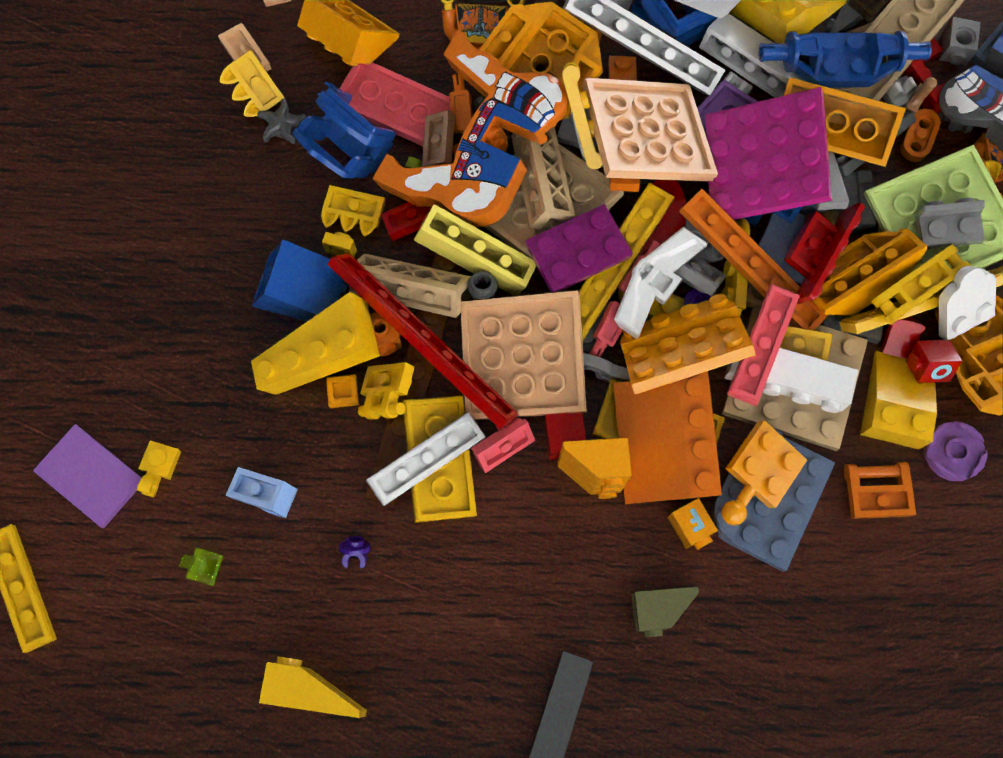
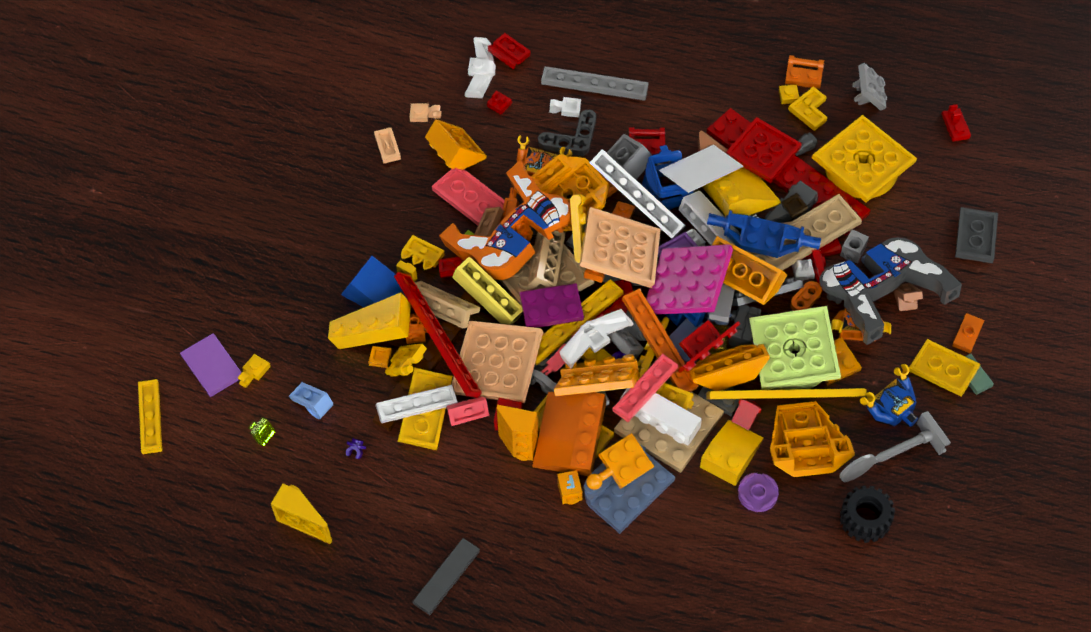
camera: 20 degrees right, 15 degrees down
(252, 84) = (385, 164): yellow plate -> none
(280, 123) = (395, 192): dark grey animal -> none
(347, 130) = (434, 205): blue animal -> none
(482, 286) = (485, 314): dark grey cone -> none
(660, 609) = (532, 529): olive slope -> none
(880, 500) = (697, 506): orange plate -> none
(920, 94) = (810, 270): medium nougat bar -> none
(920, 284) = (761, 378): yellow plate -> none
(933, 361) = (758, 431): red brick -> none
(950, 223) = (793, 348): light grey bracket -> none
(966, 301) = (790, 399): white plate -> none

